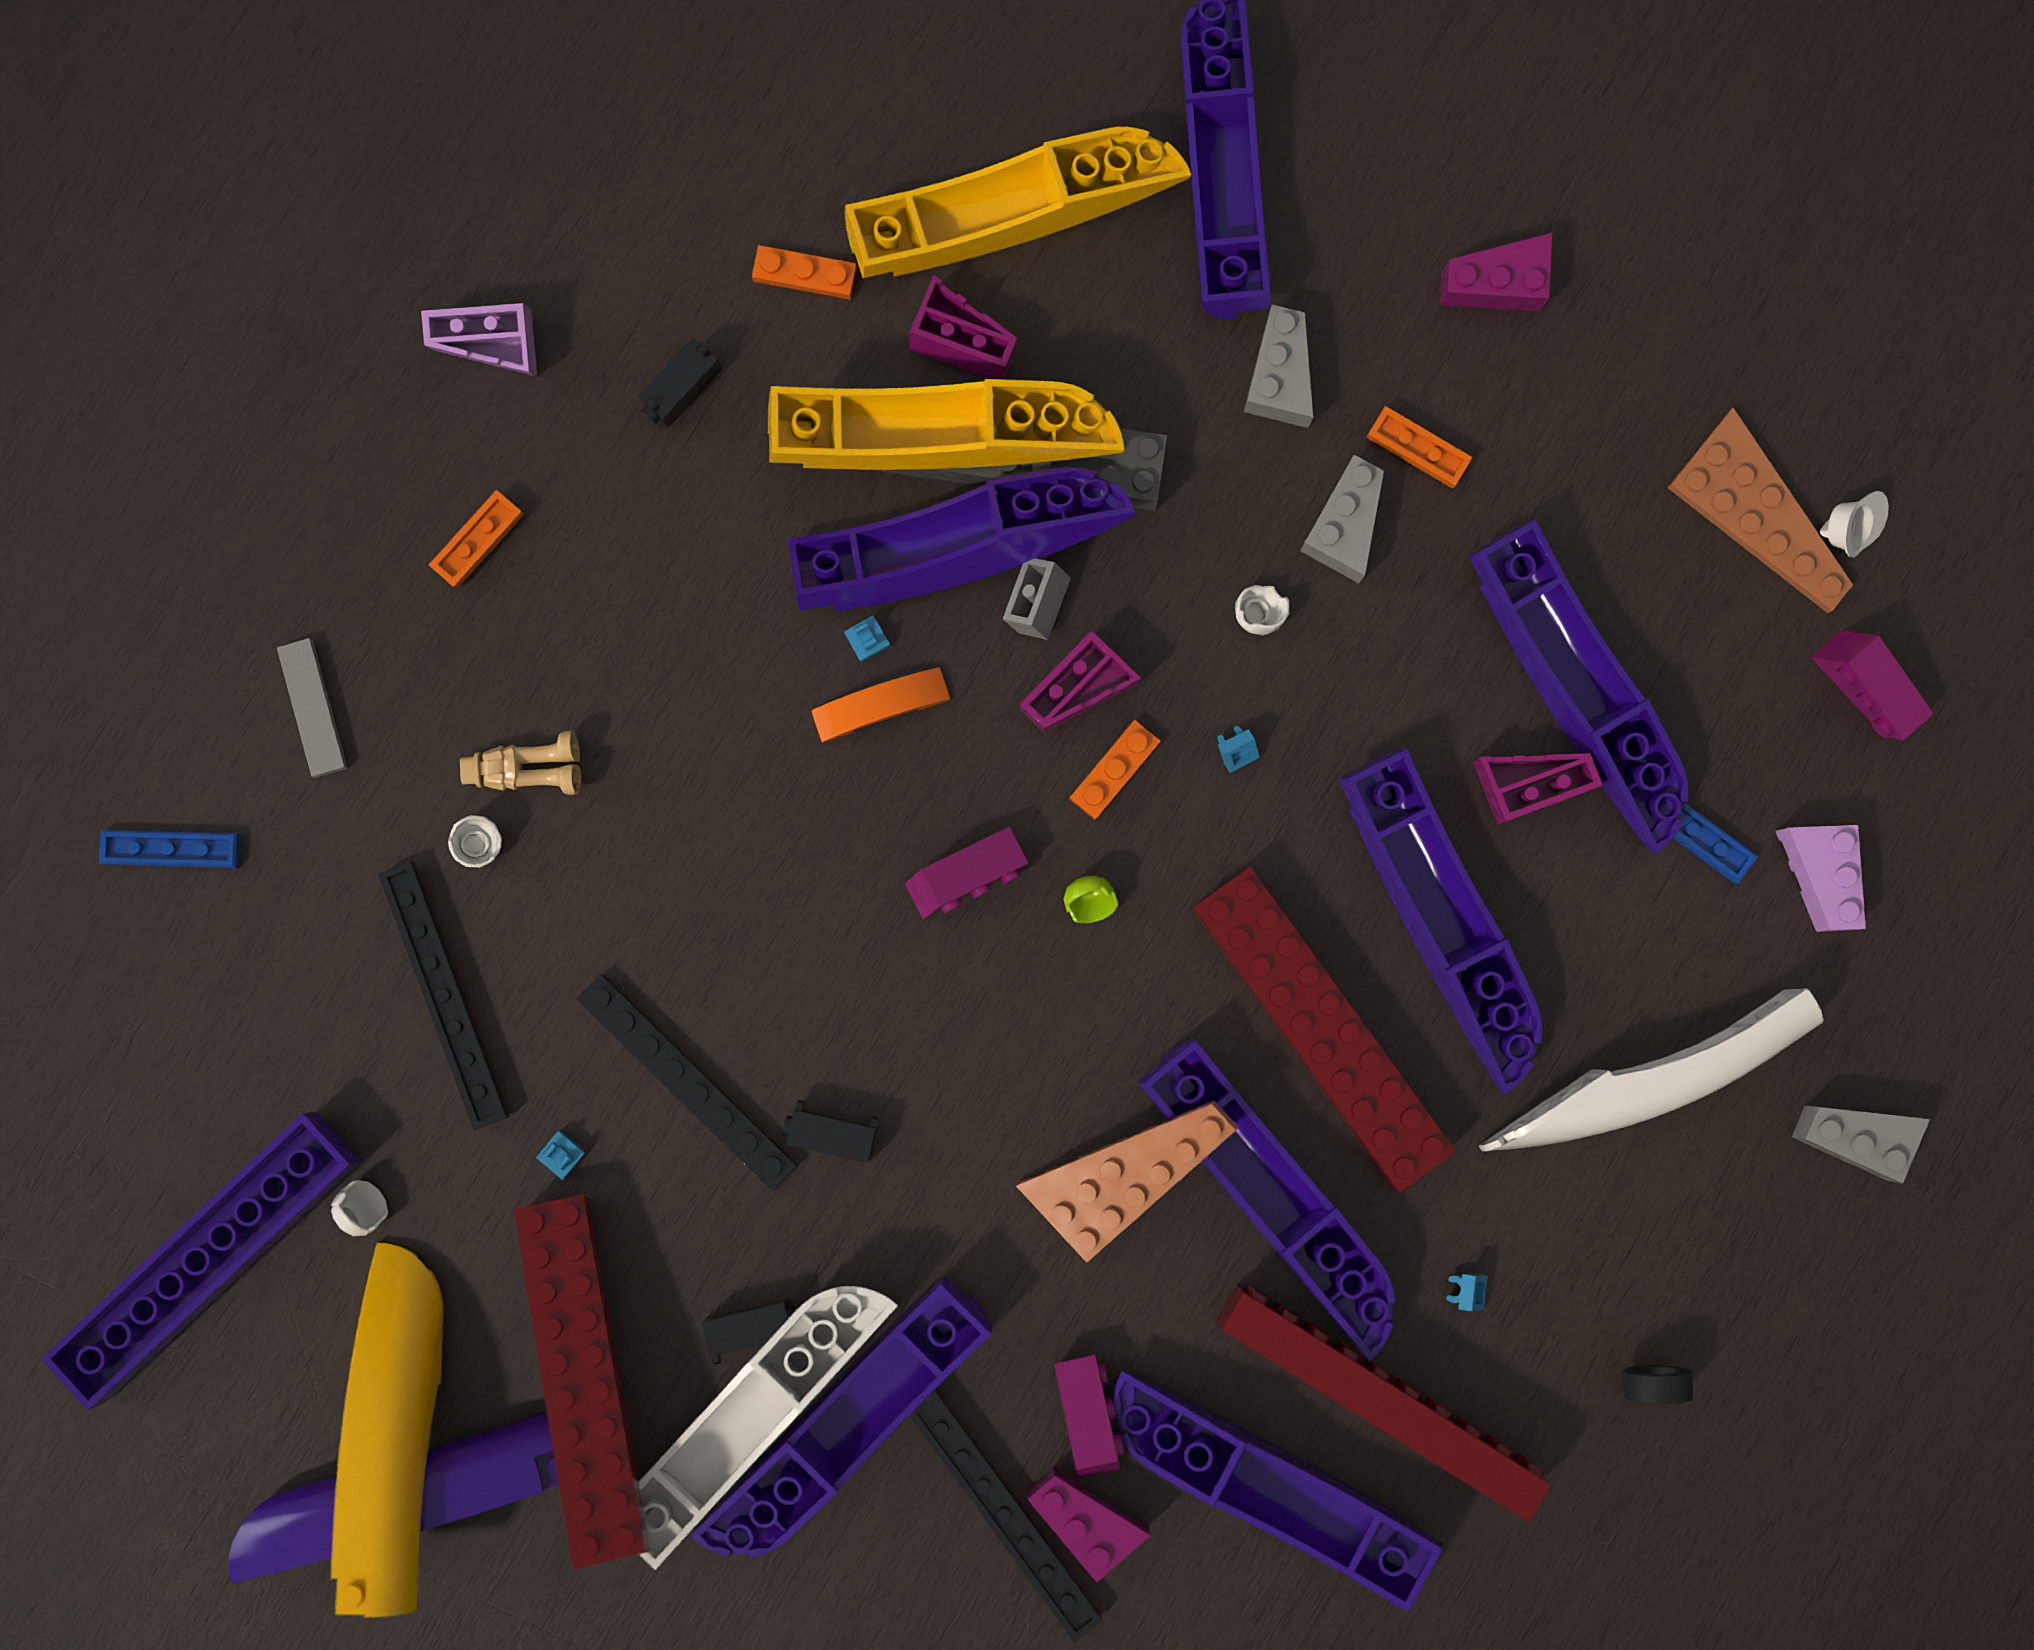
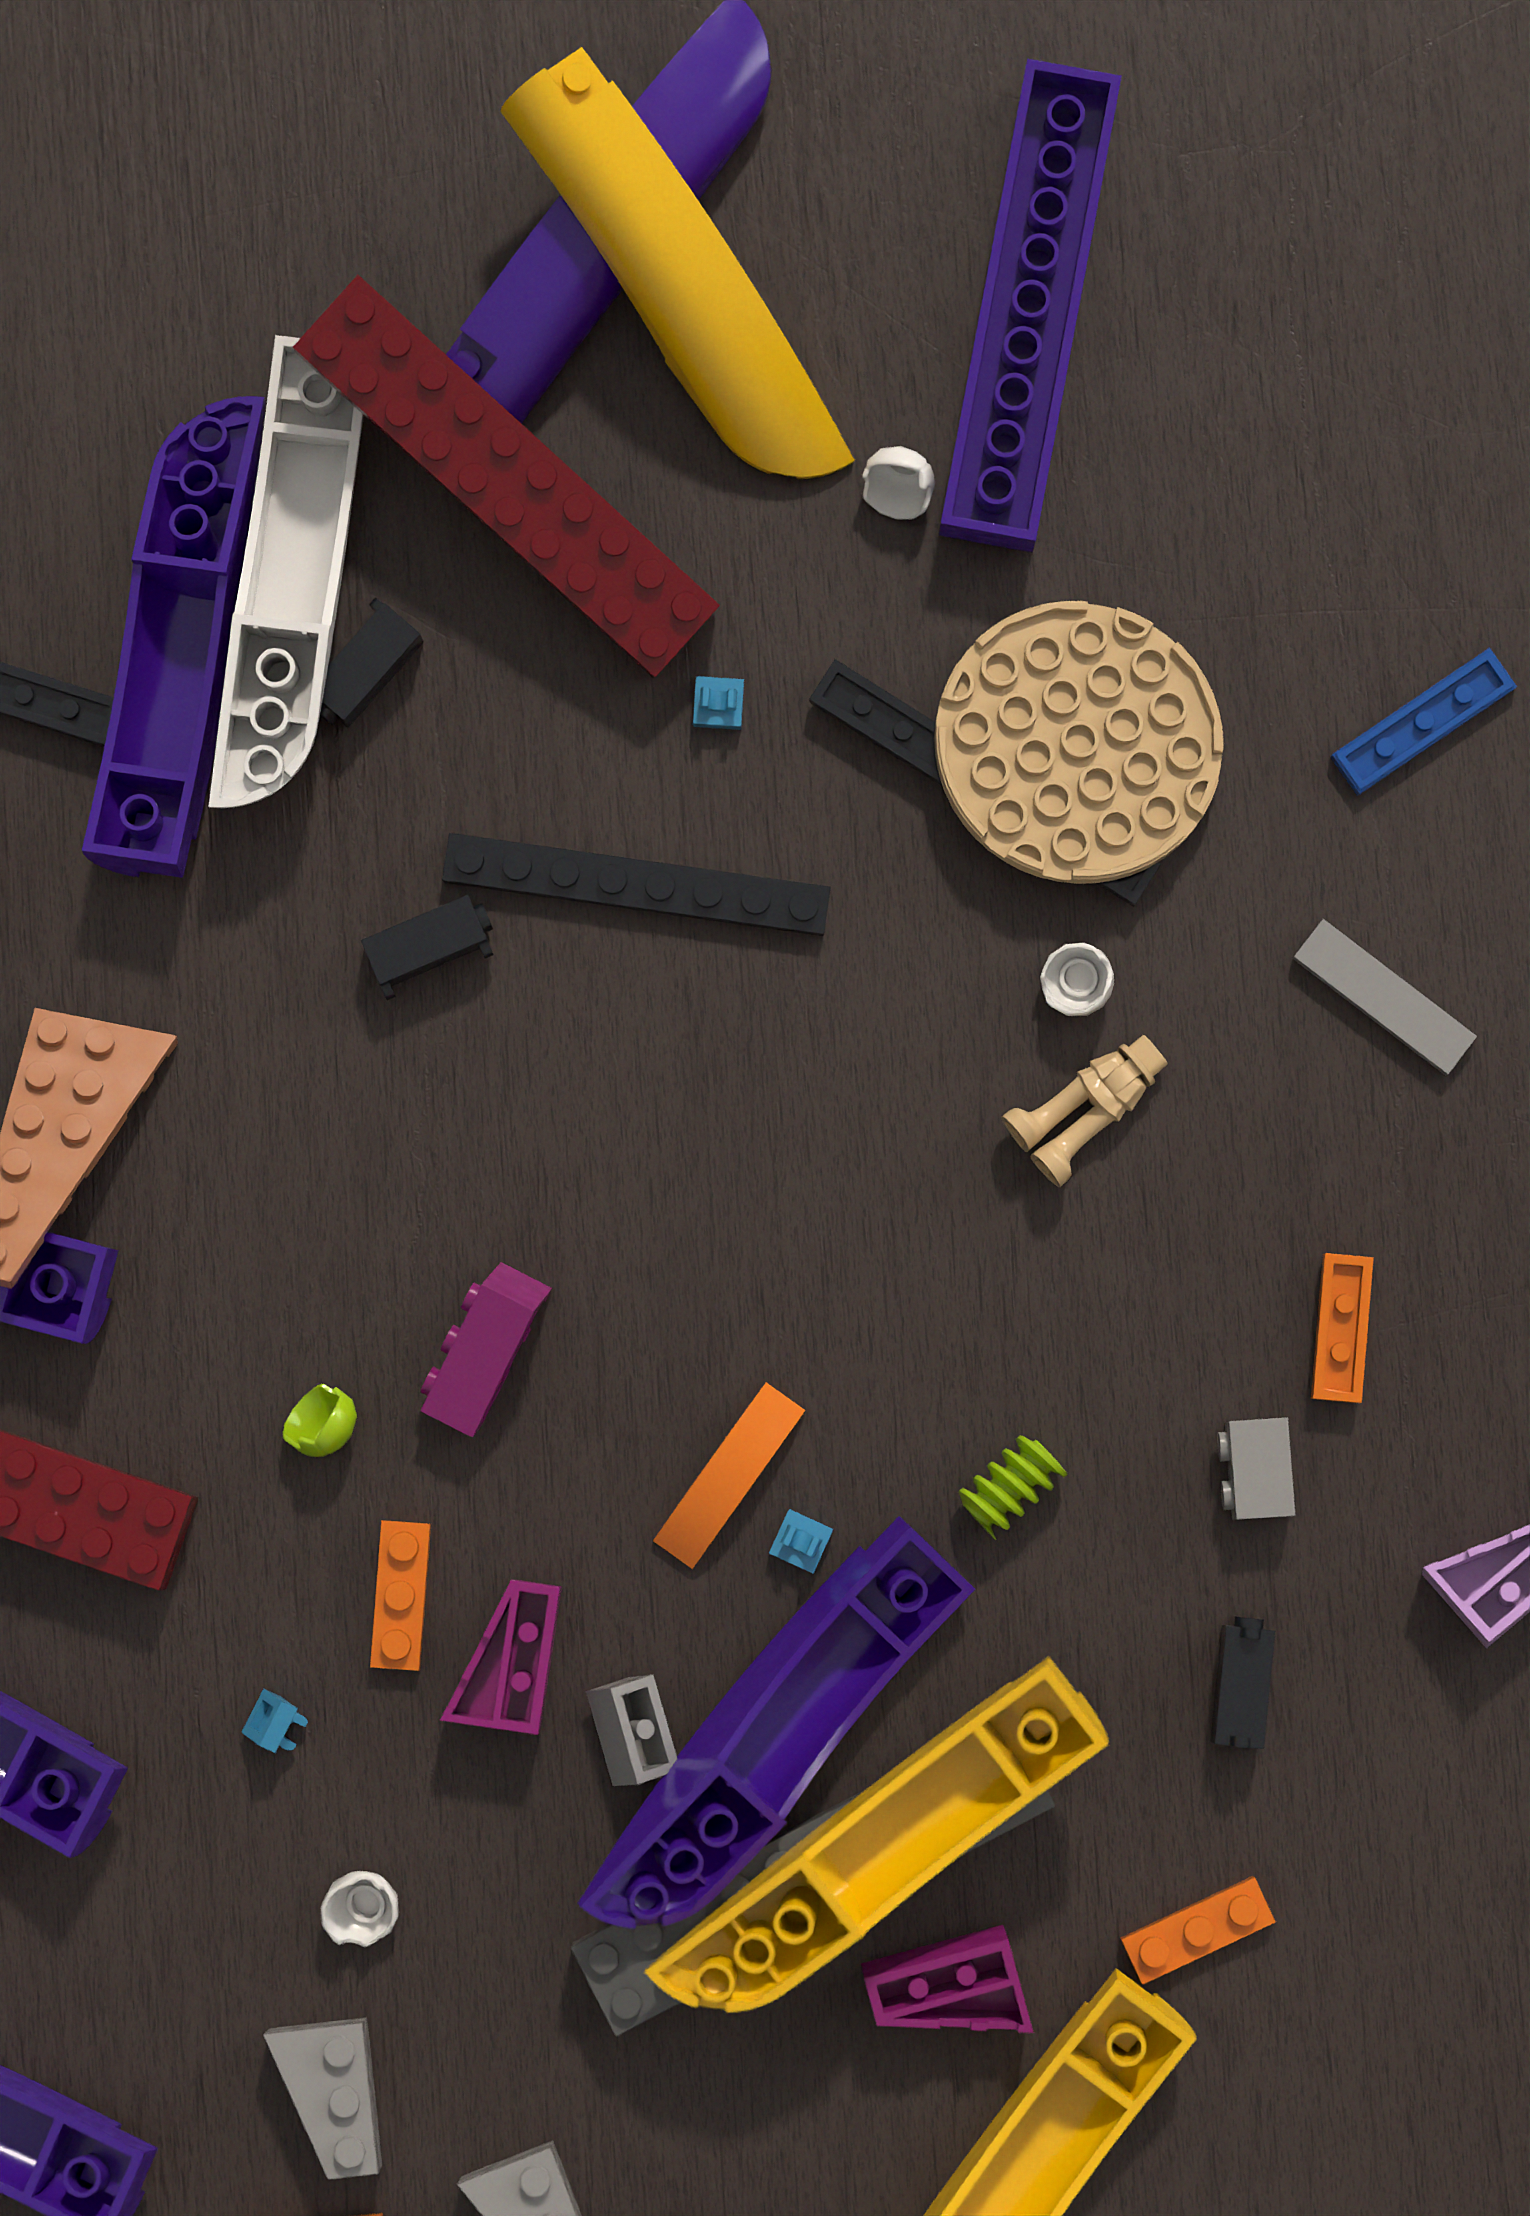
camera: 140 degrees right, 0 degrees up
(371, 979) = (1078, 742): none -> tan tile
(581, 495) = (1257, 1468): none -> light grey brick
(725, 584) = (1010, 1484): none -> lime piece

